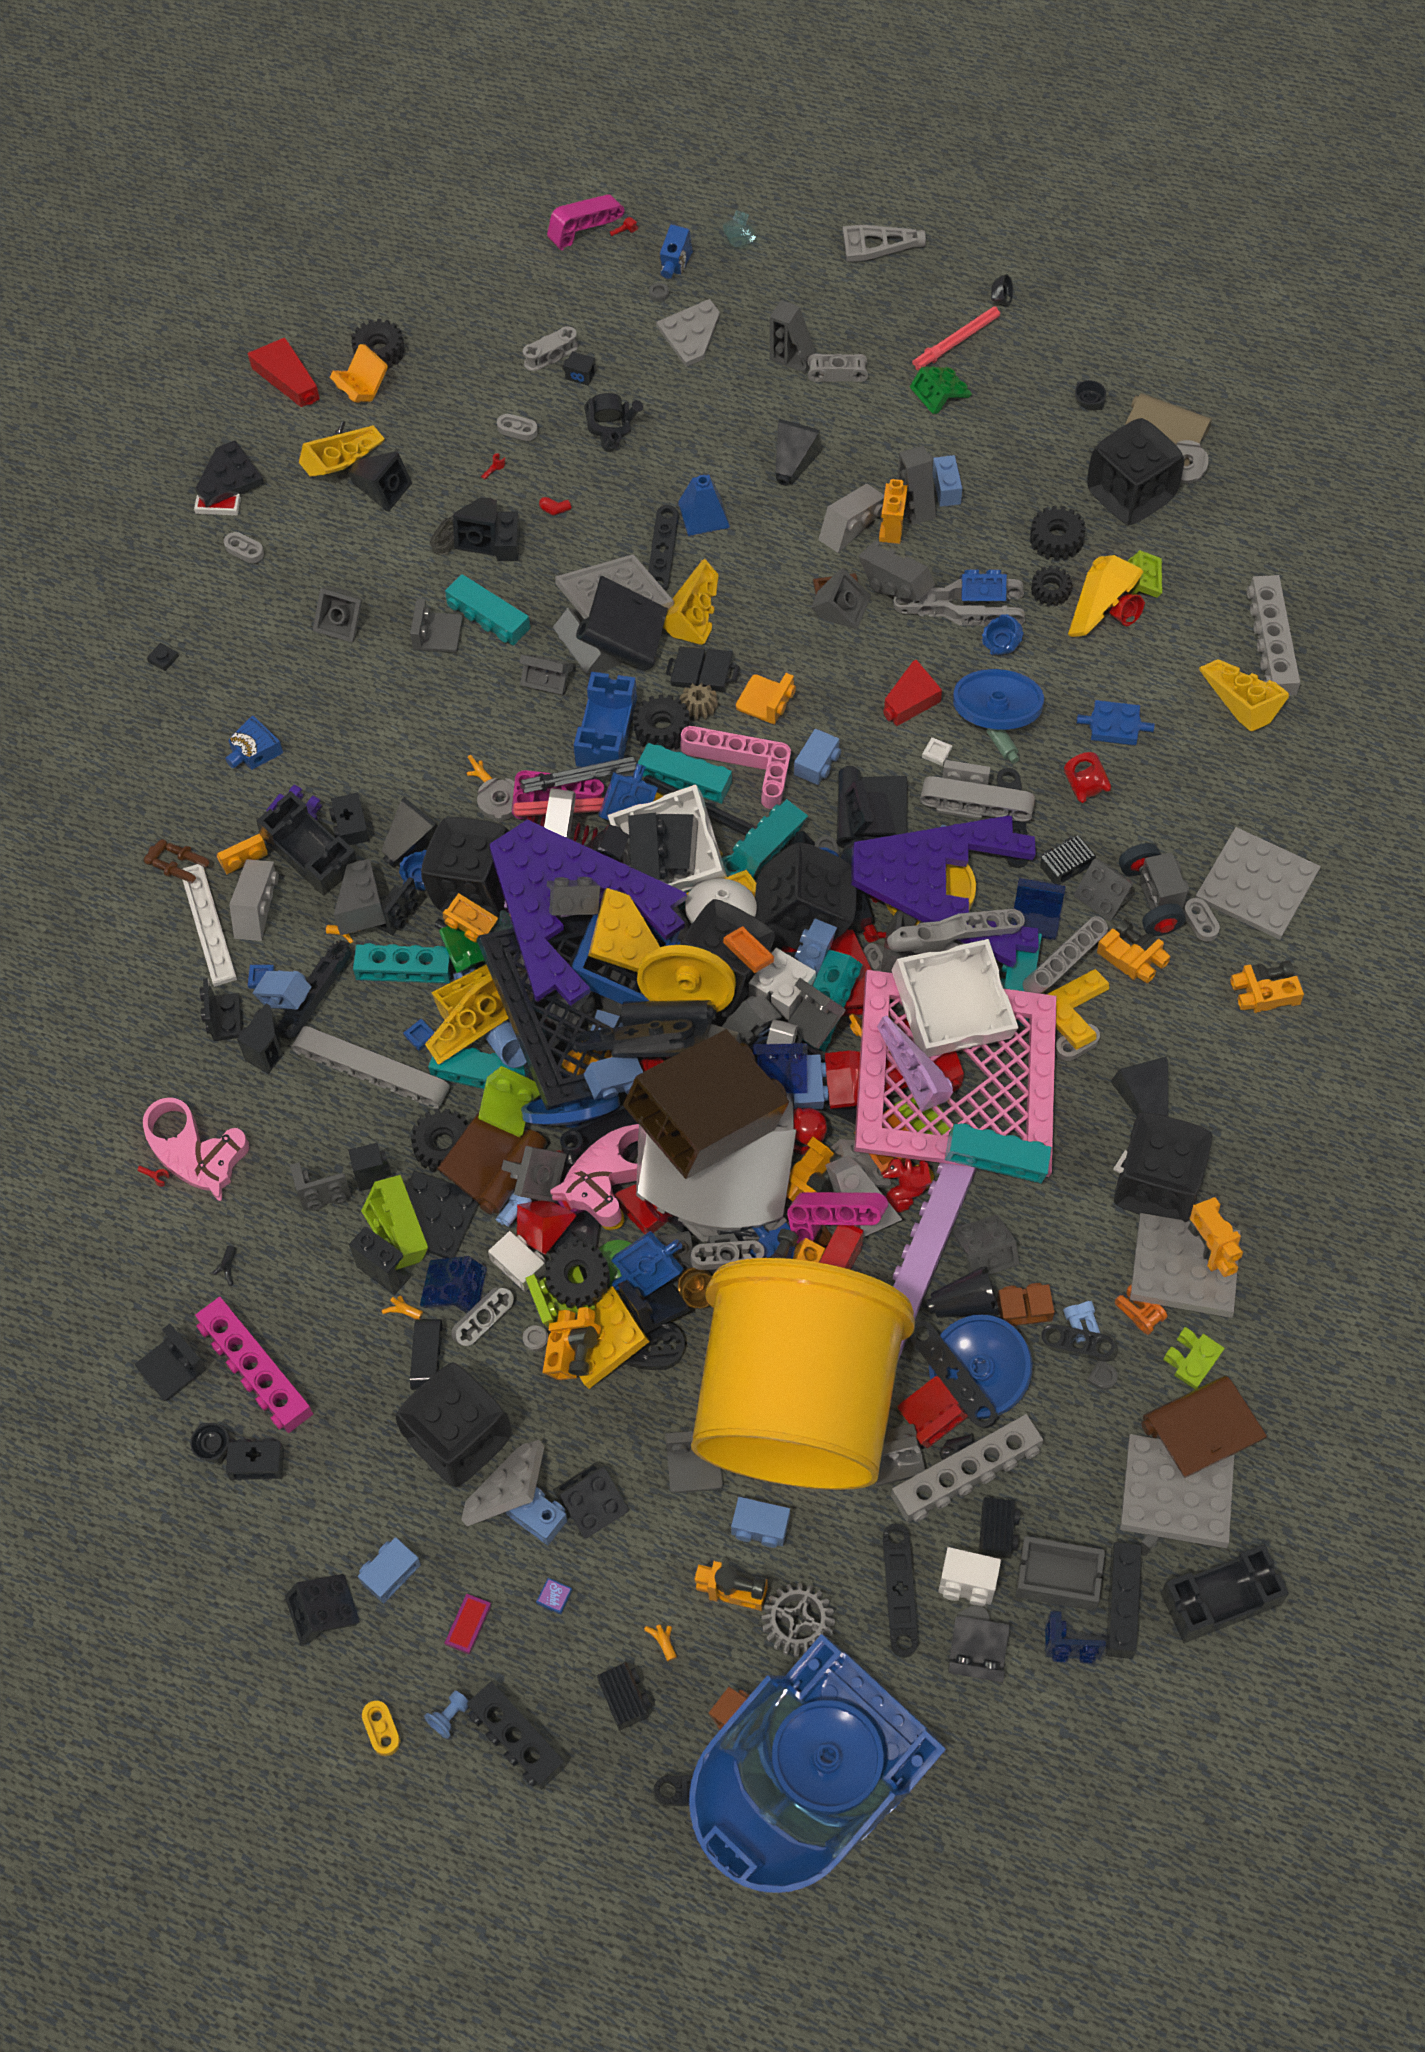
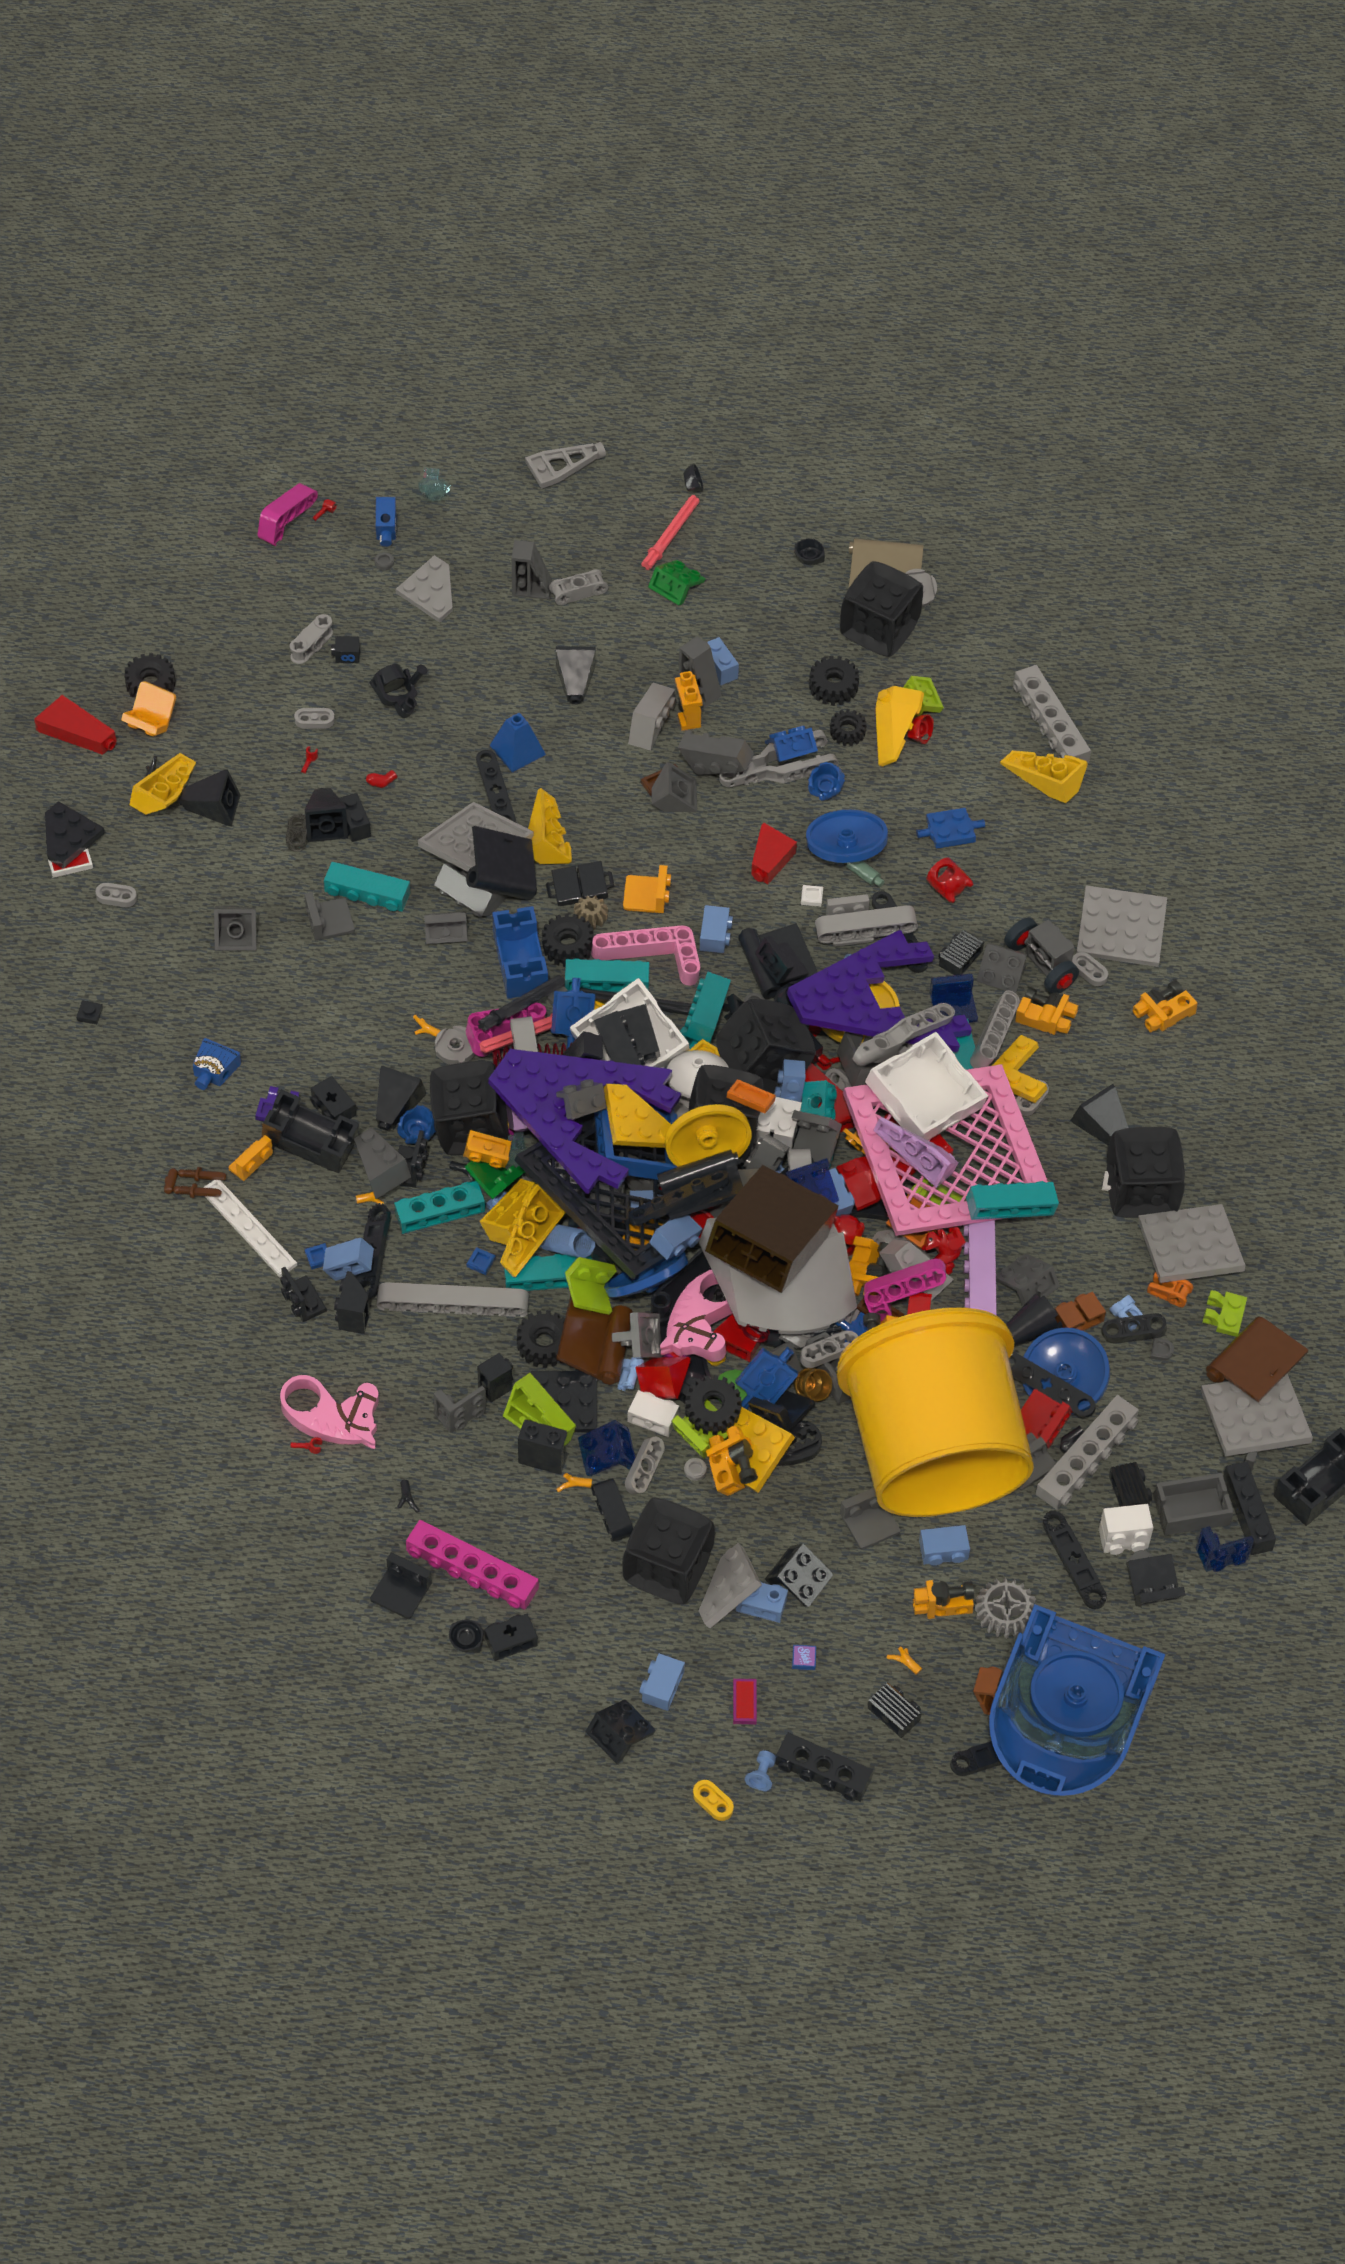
camera: 25 degrees left, 5 degrees down
(252, 899) = (283, 1193): light grey wedge -> none
(1217, 1236) = (1210, 1210): light orange hips -> none

